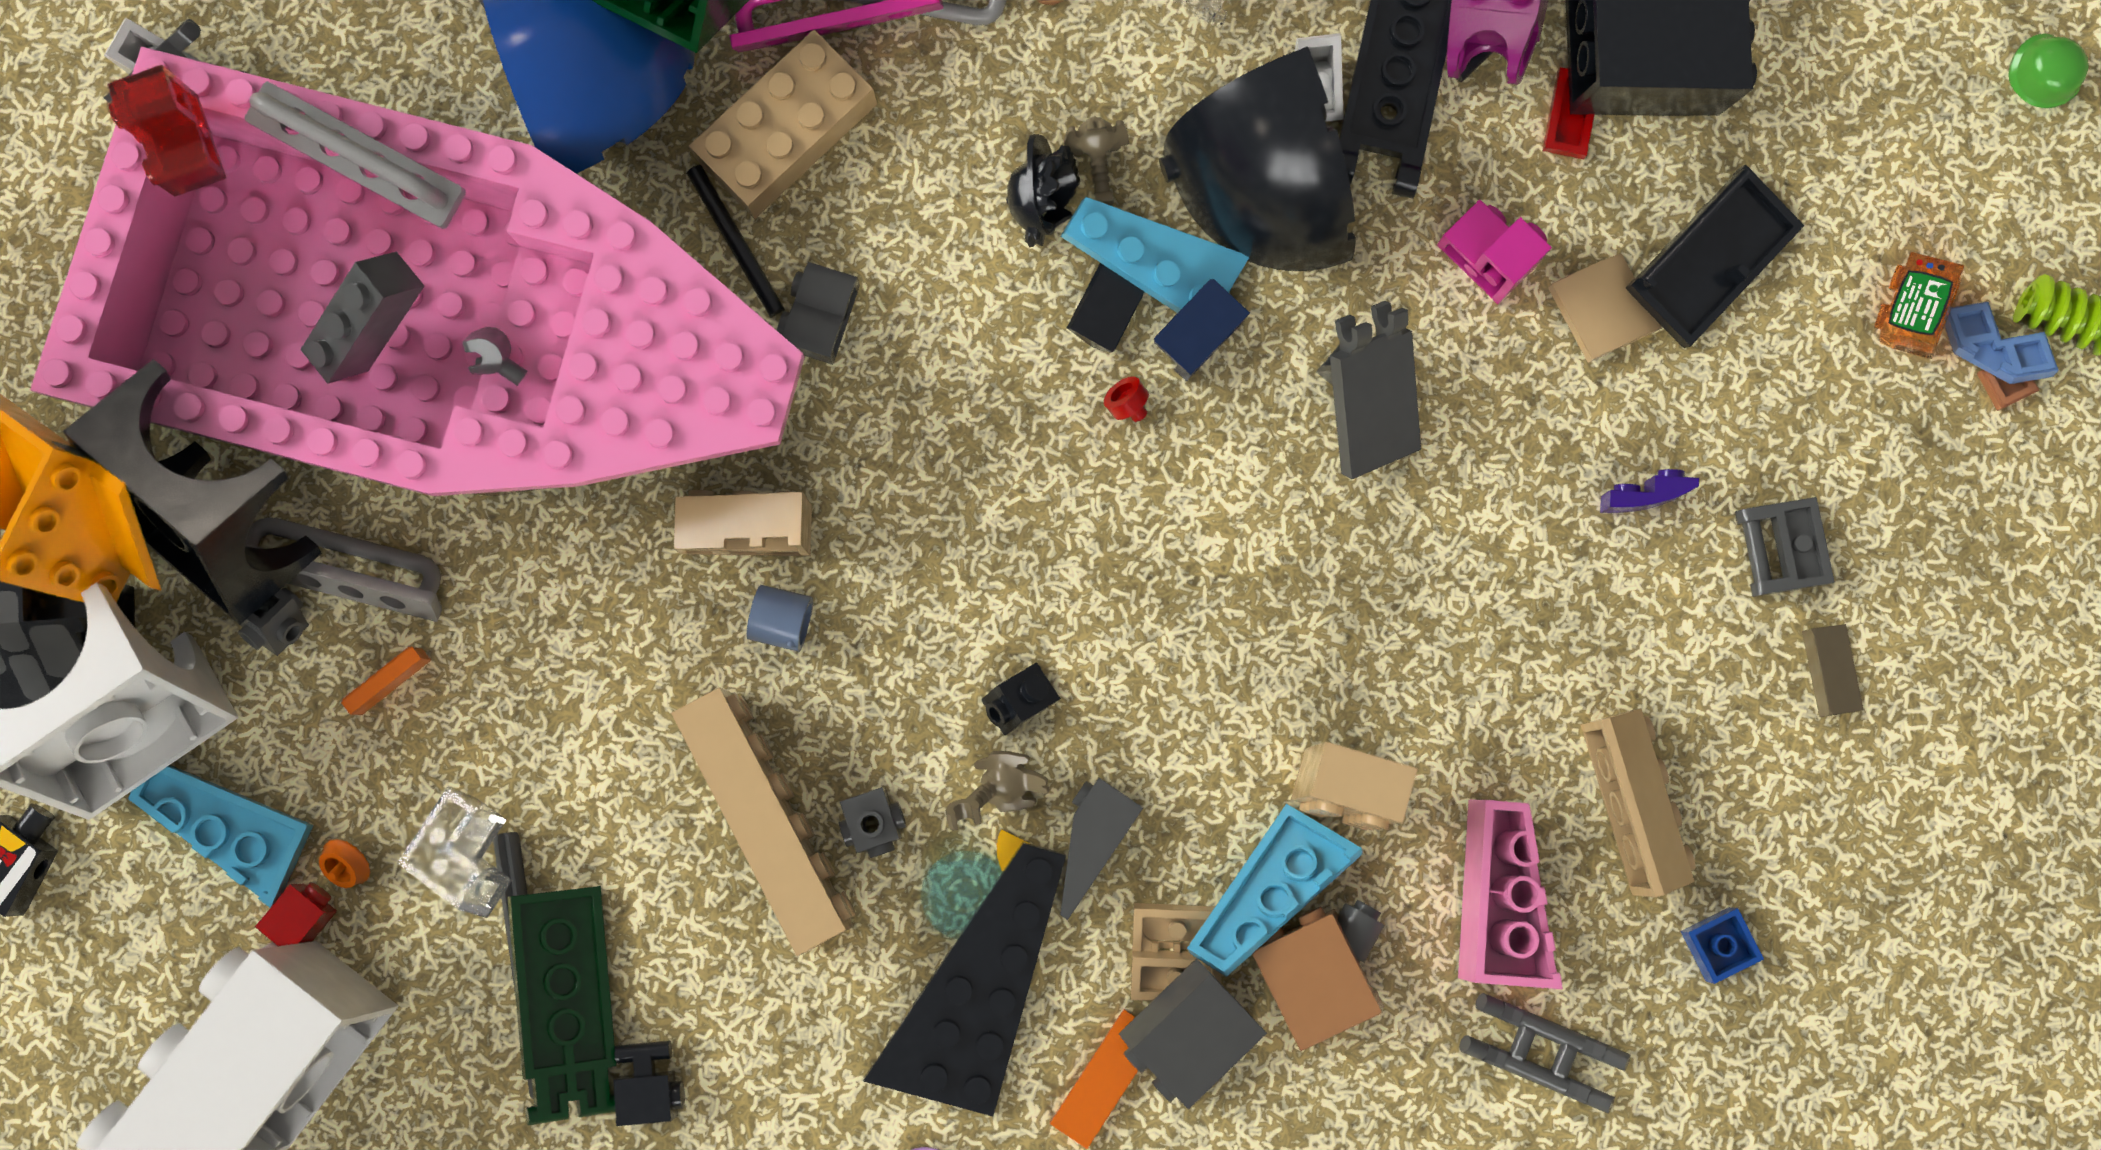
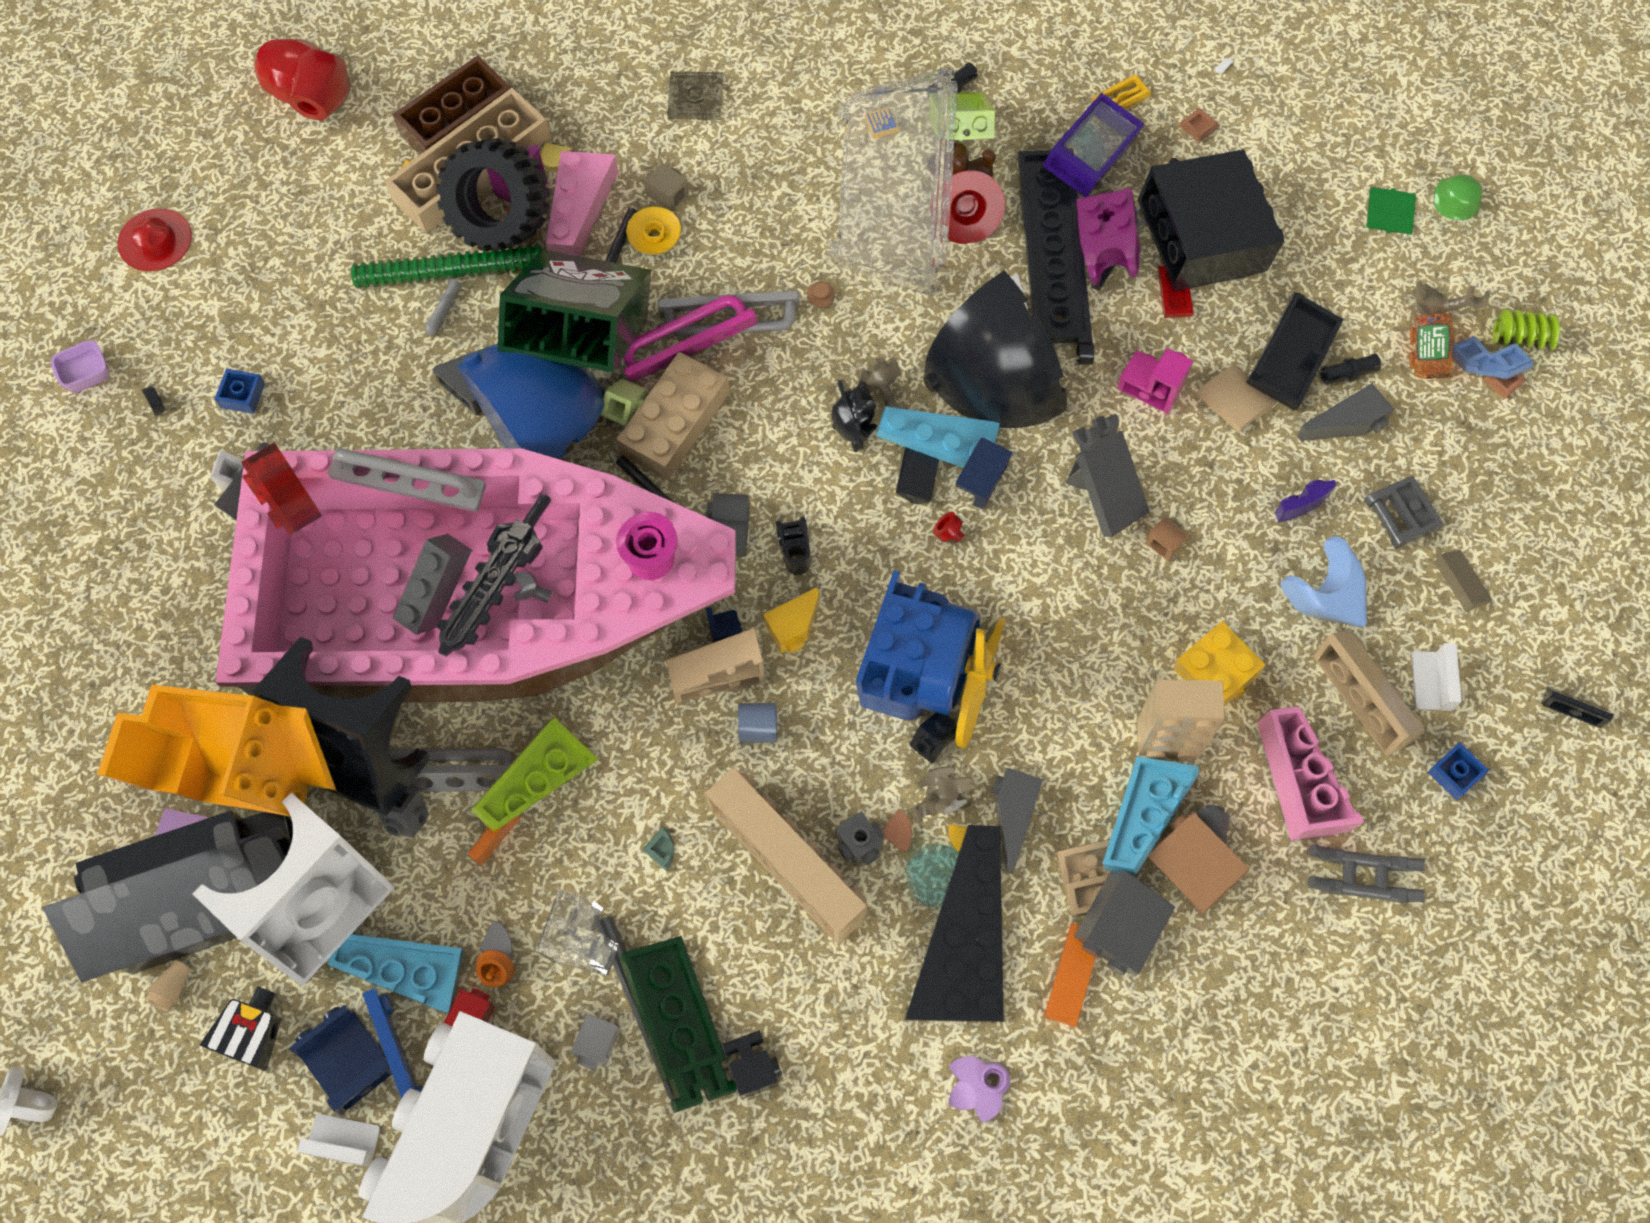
camera: 15 degrees left, 15 degrees down
(97, 1036) = (341, 1140): none -> white panel
(124, 928) = (342, 1058): none -> dark blue panel
(182, 880) = (380, 1008): none -> blue plate
(359, 826) = (497, 939): none -> light grey tile
(451, 998) = (595, 1042): none -> light grey brick
(465, 607) = (537, 771): none -> lime wing
(479, 298) = (510, 548): none -> black bar
(606, 756) = (660, 848): none -> sand green tile
(660, 355) = (647, 545): none -> dark pink piece
(716, 83) = (622, 401): none -> yellowish green brick
(774, 467) = (723, 624): none -> dark blue panel
(869, 483) = (793, 621): none -> yellow slope
(904, 359) = (793, 541): none -> black piece
(930, 819) = (898, 831): none -> nougat tile
(1032, 586) = (923, 655): none -> blue brick
(1433, 497) = (1167, 538): none -> medium nougat brick
(1440, 710) = (1222, 658): none -> yellow brick
(1648, 650) = (1340, 596): none -> light blue animal
(1740, 805) = (1436, 679): none -> white panel
(1764, 383) = (1351, 417): none -> dark grey slope
(1786, 306) = (1350, 368): none -> black pin
(1923, 897) = (1576, 707): none -> black slope
(1939, 64) = (1391, 210): none -> green piece
(1945, 238) = (1431, 301): none -> dark tan piece

